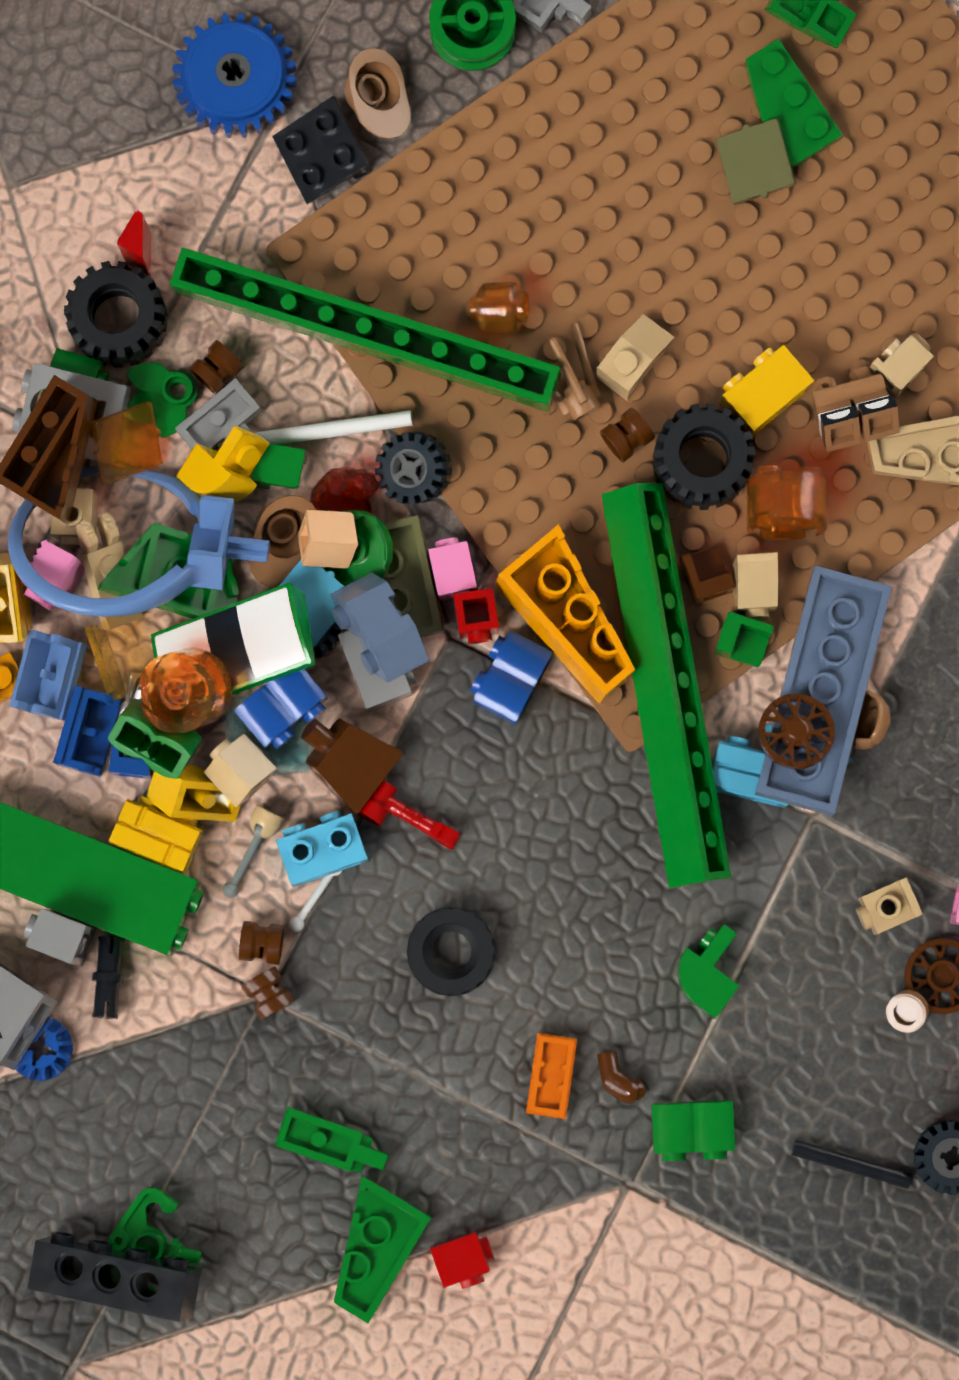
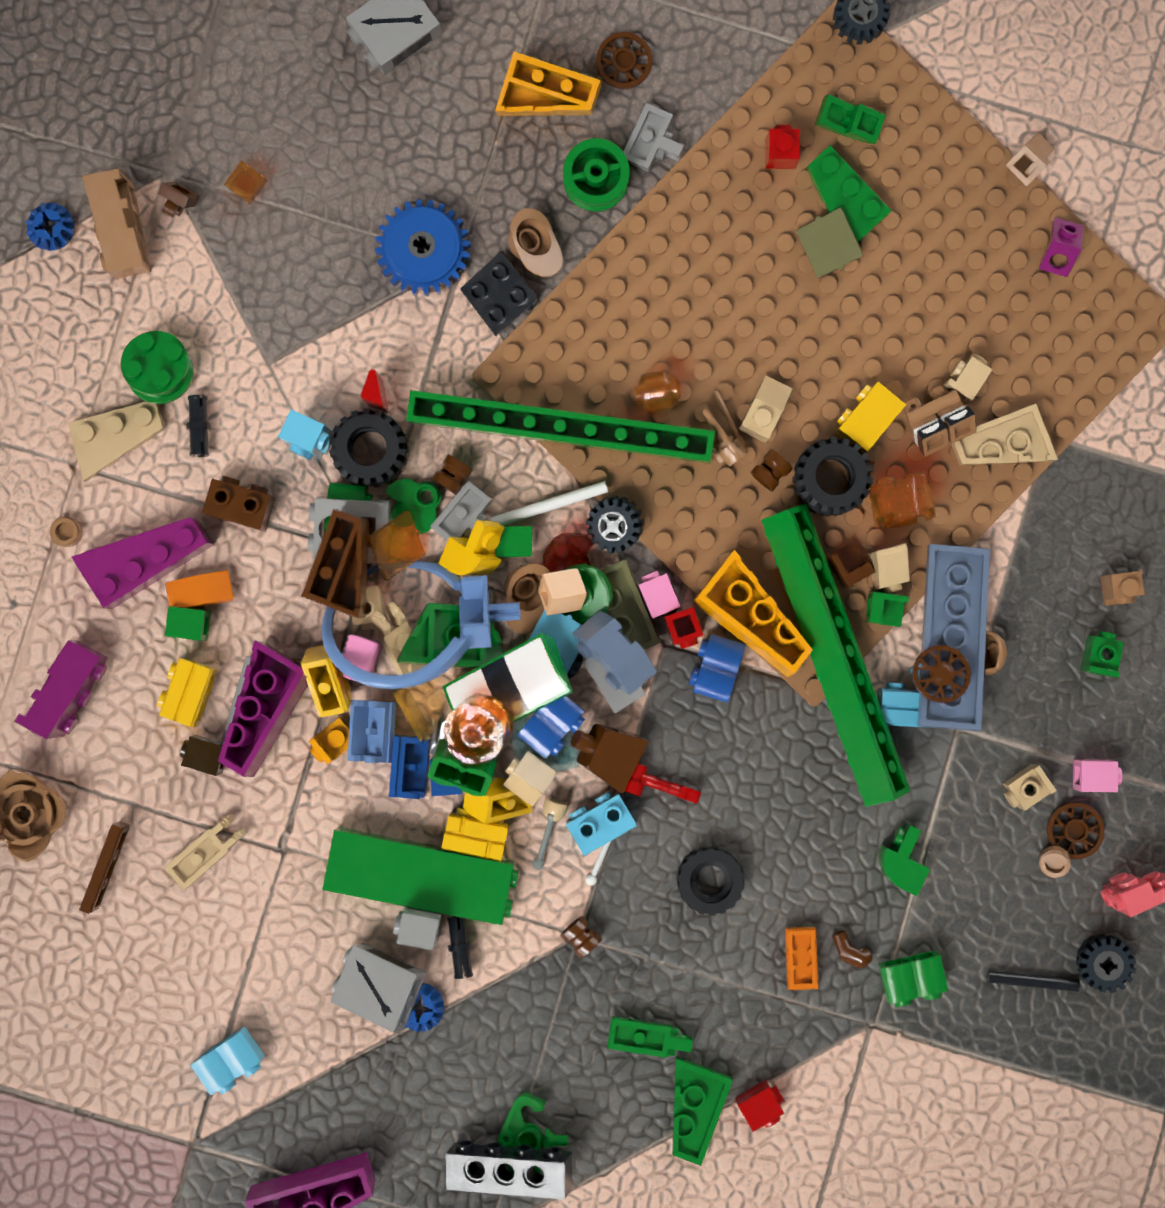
camera: 15 degrees left, 5 degrees up
(37, 282) = (305, 435): none -> medium azure brick
(261, 942) = (568, 900): reddish brown wheel -> none
(716, 31) = (782, 147): none -> red brick

